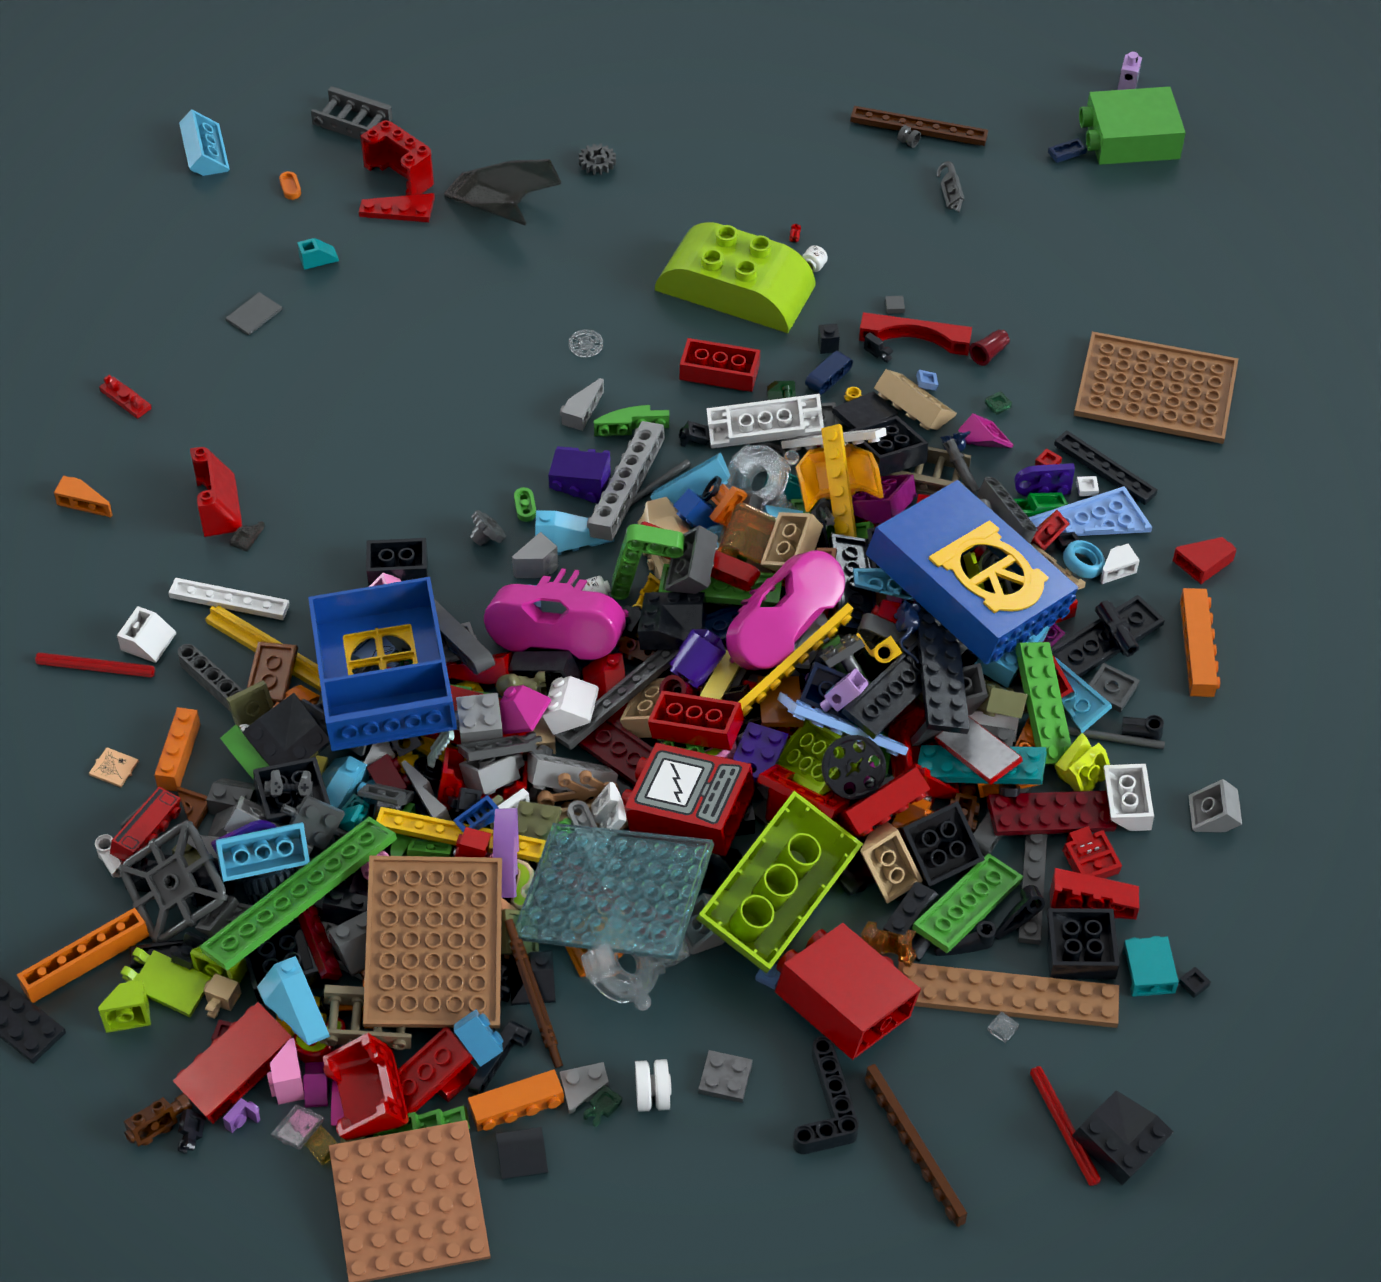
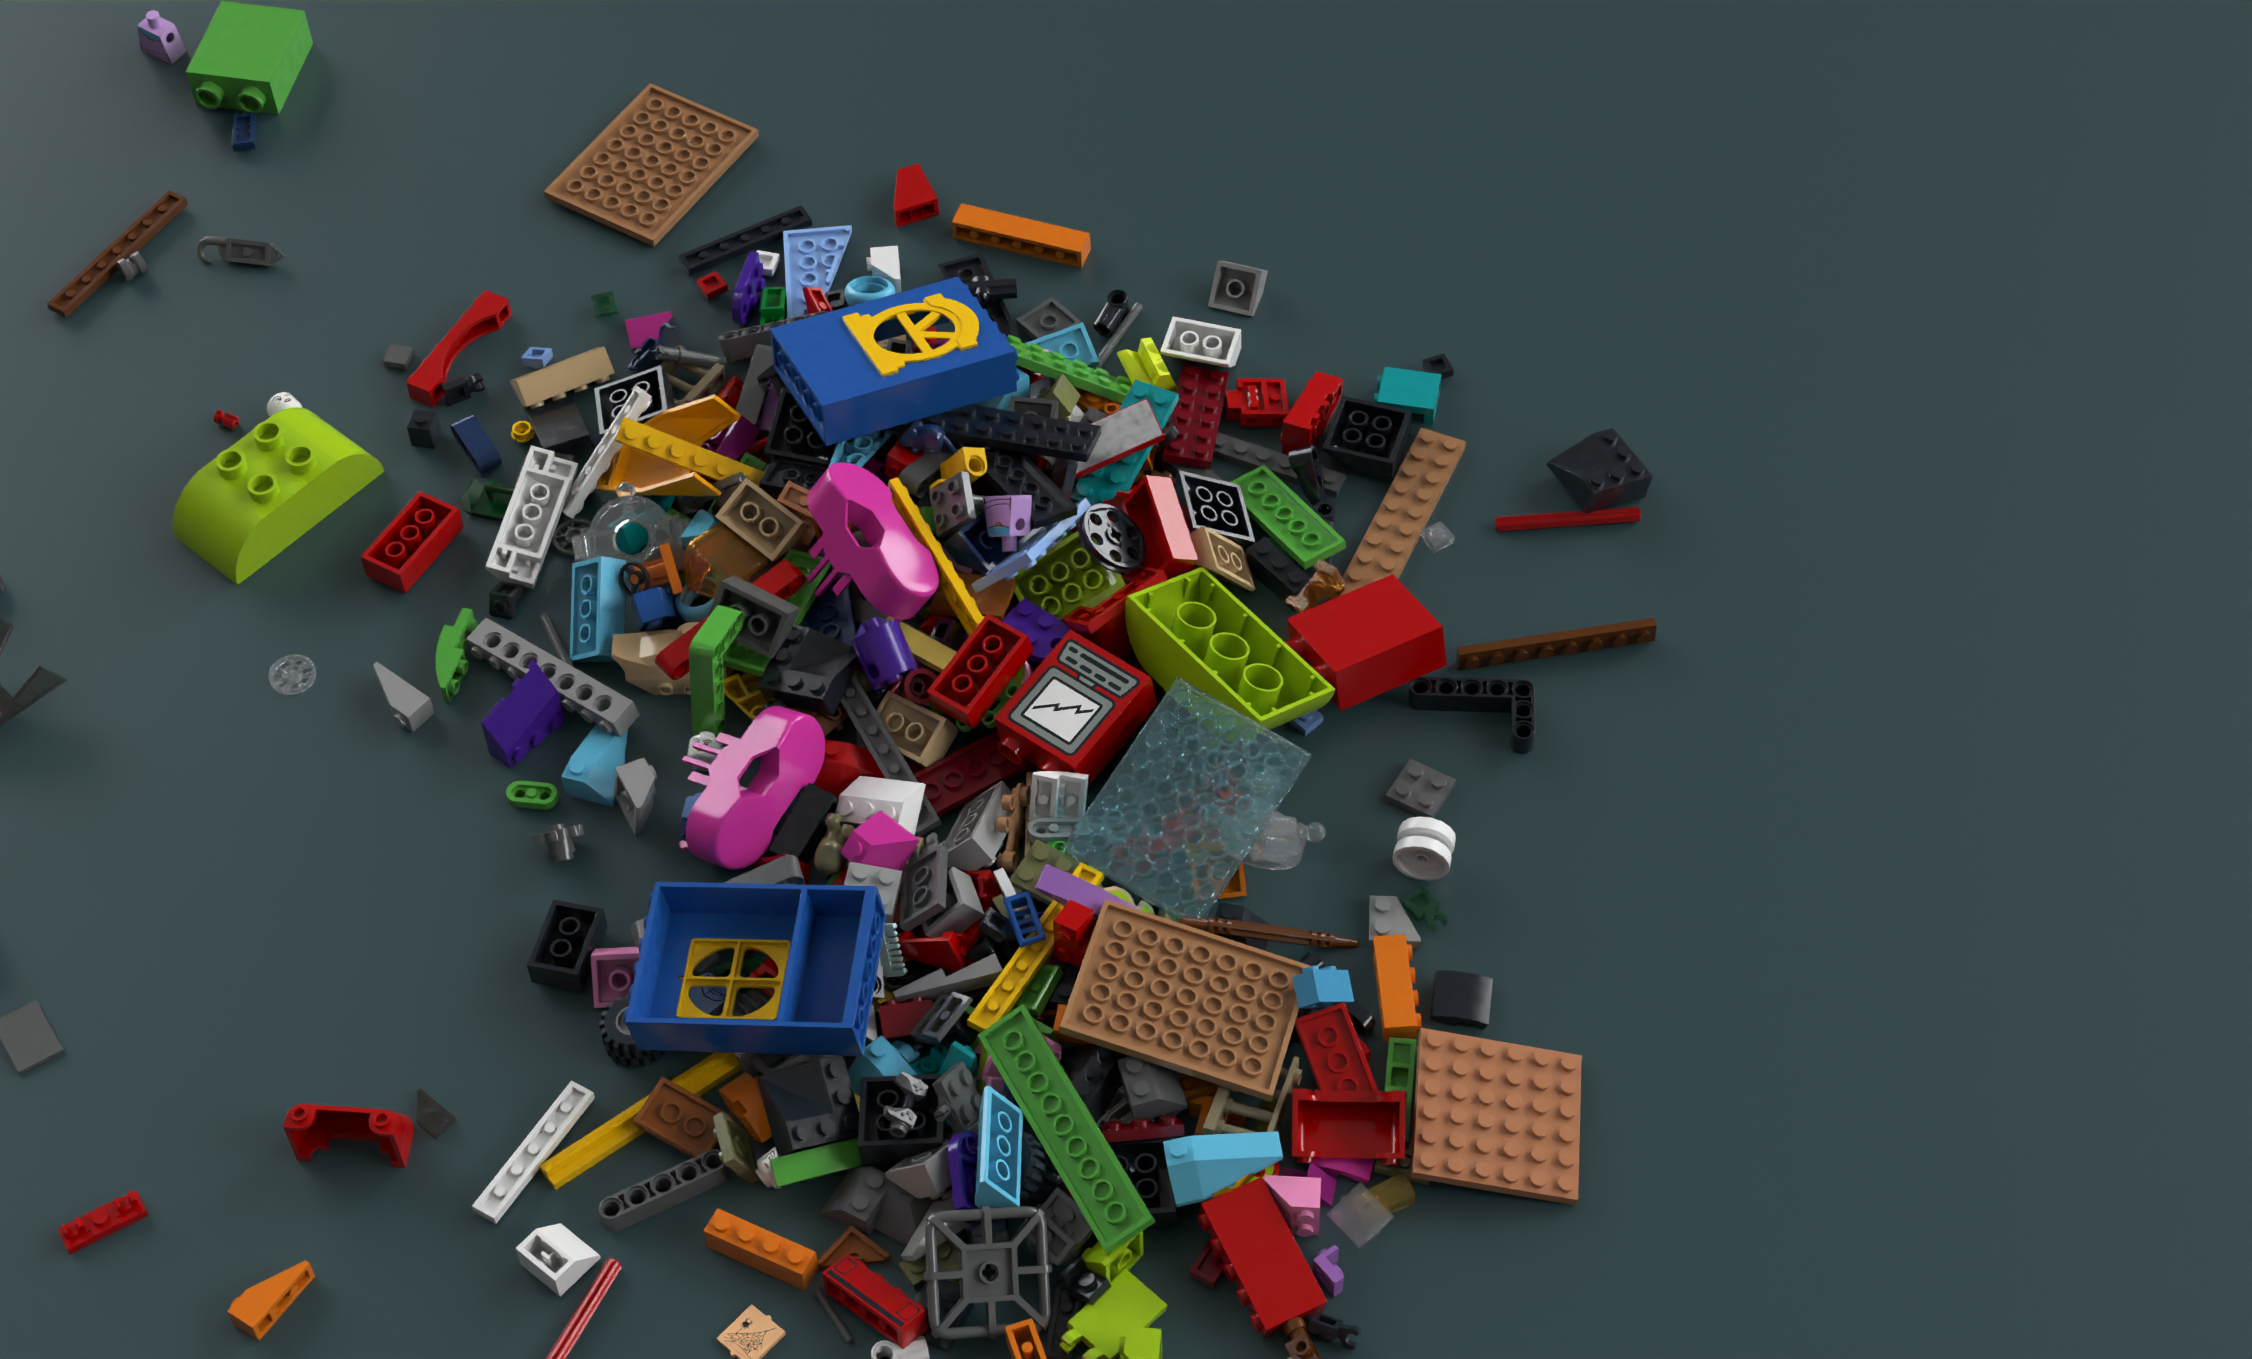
camera: 70 degrees left, 0 degrees up
(221, 993) = (1153, 1261): tan brick -> none
(988, 347) = (519, 289): dark red plant -> none

